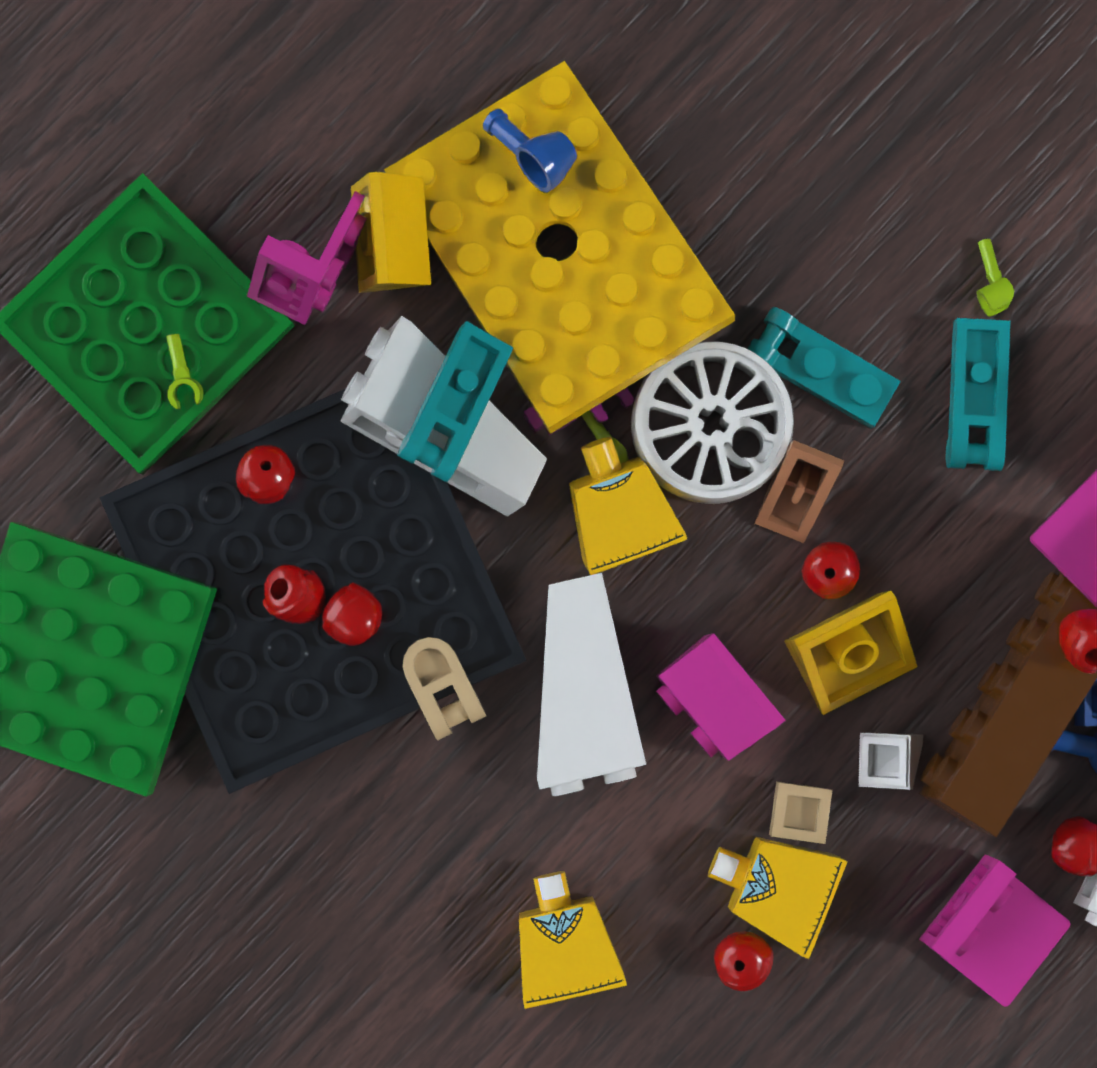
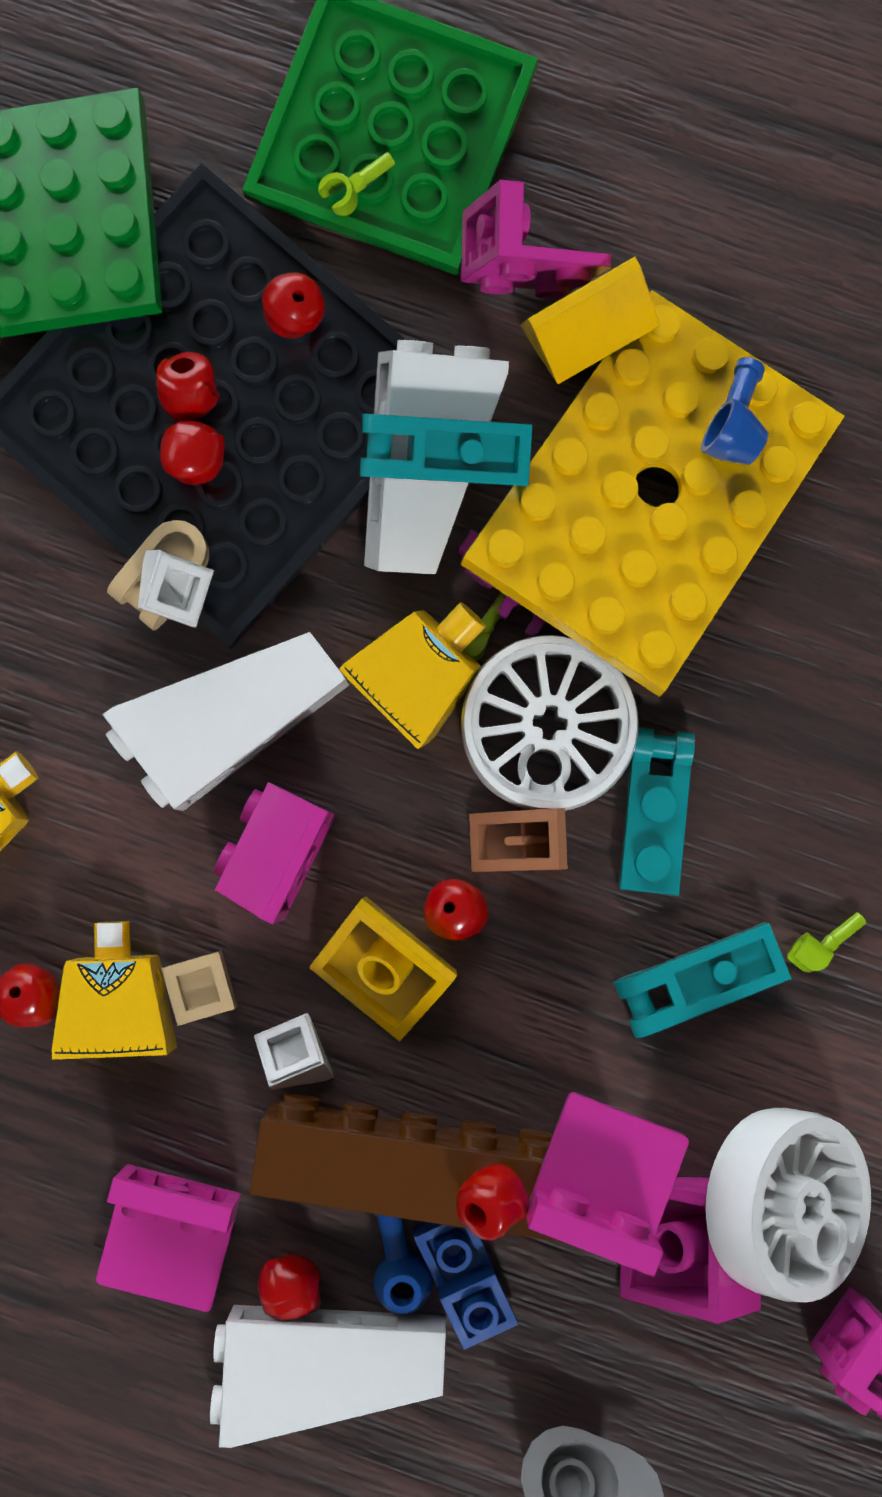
camera: 75 degrees right, 0 degrees up
(463, 680) = (173, 587): none -> white slope

